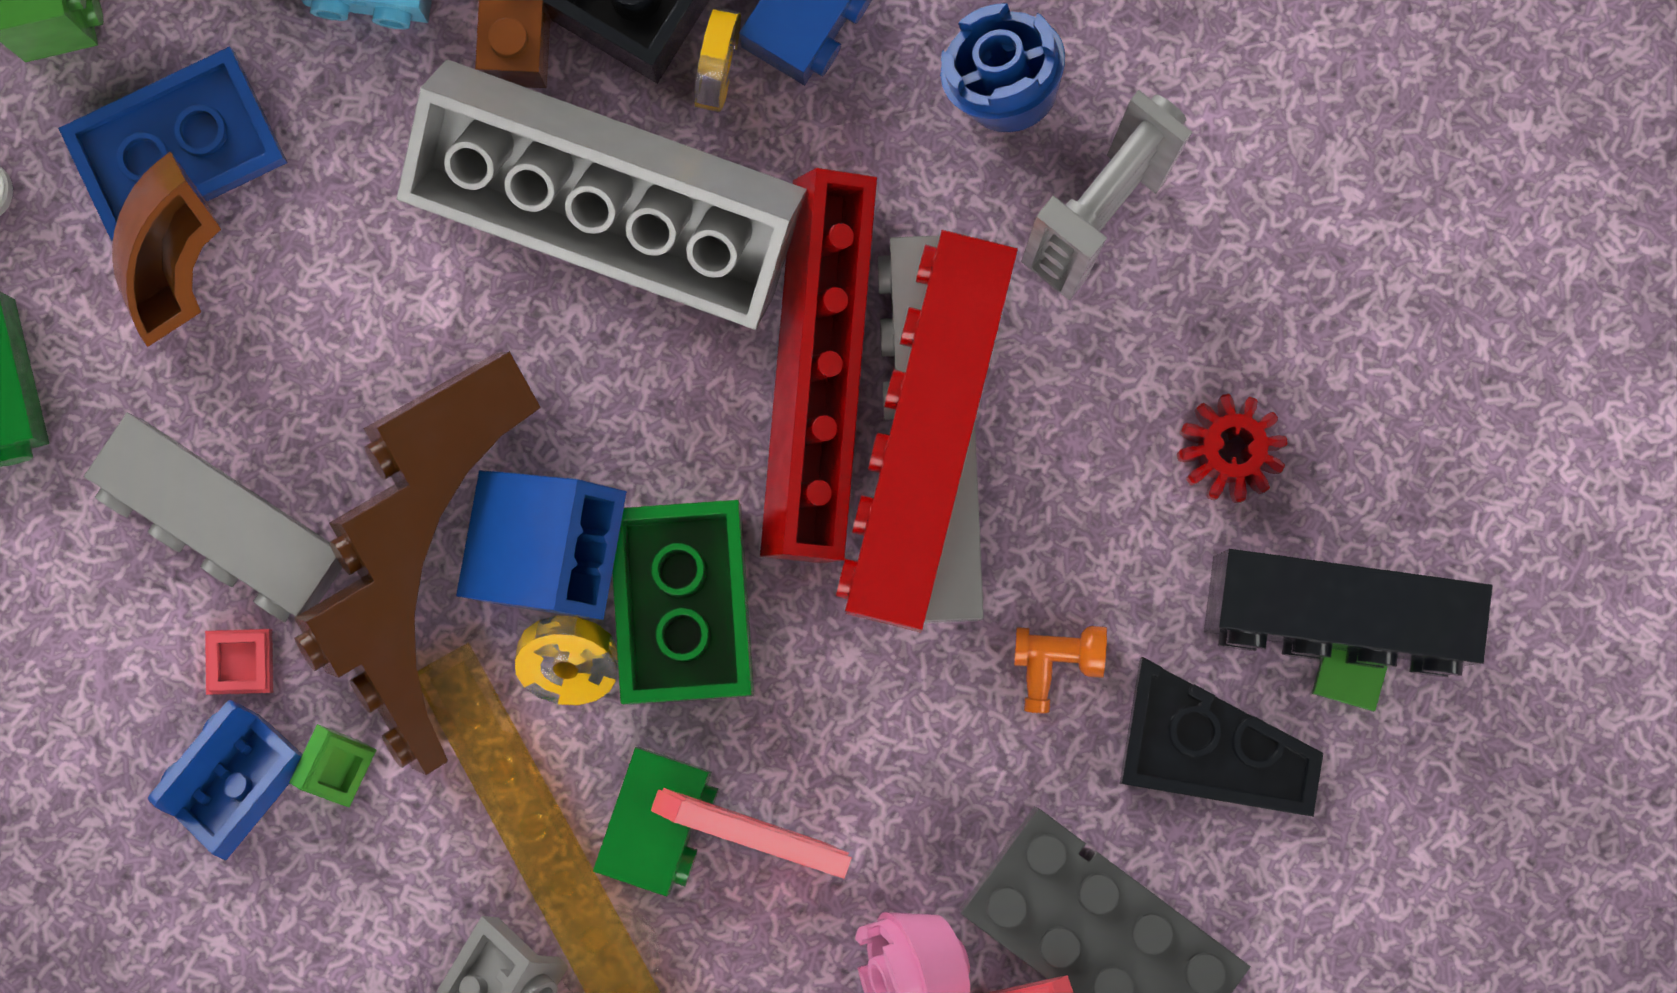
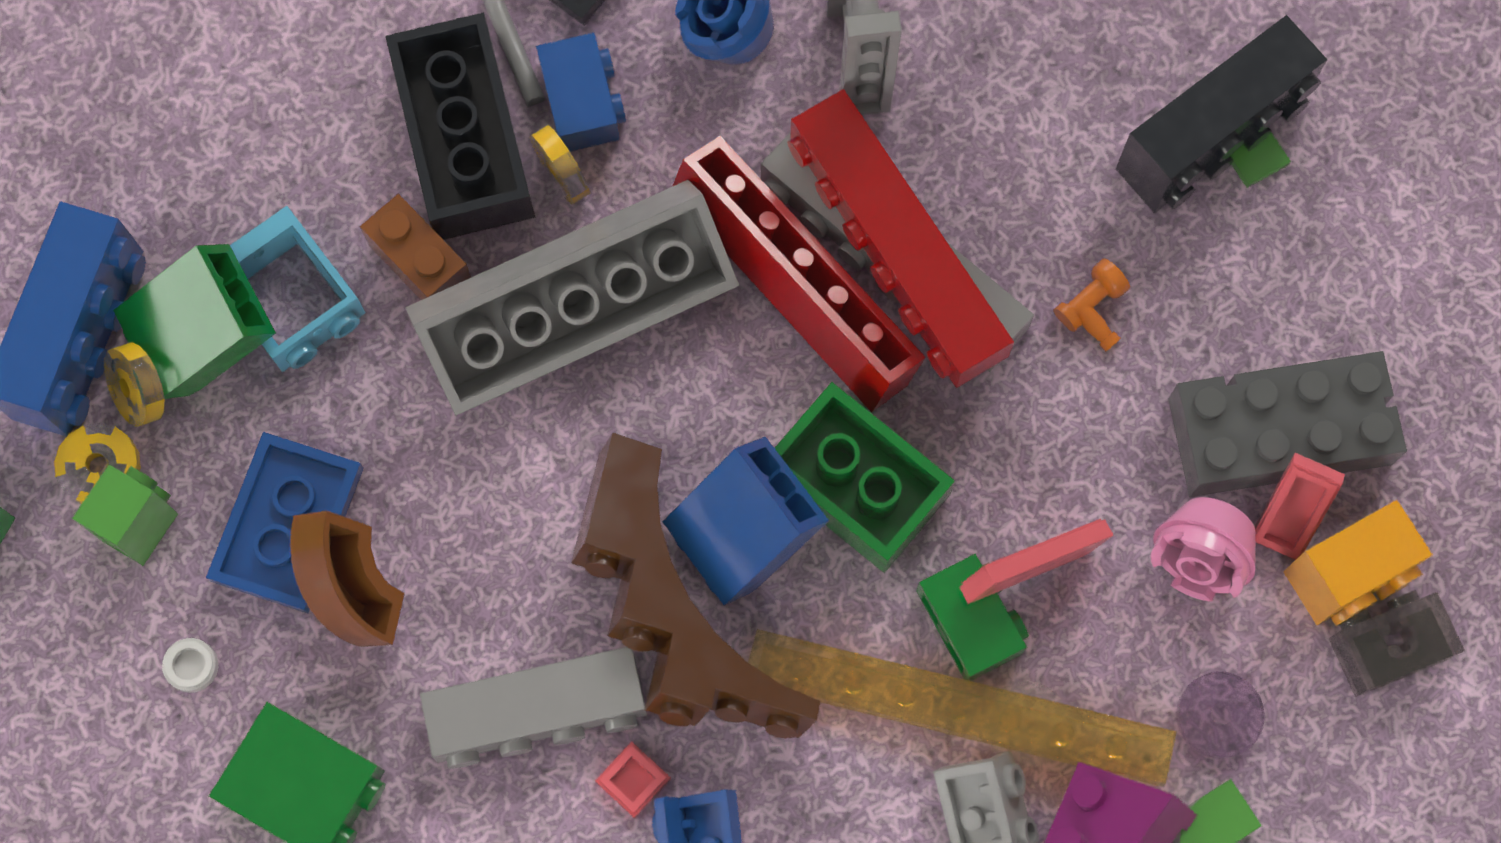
camera: 50 degrees left, 10 degrees down
(332, 766) = (753, 779): bright green tile -> none
(567, 660) = (810, 567): yellow piece -> none
(1210, 442) = (1046, 98): red gear -> none
(1211, 750) = (1228, 269): black wing -> none

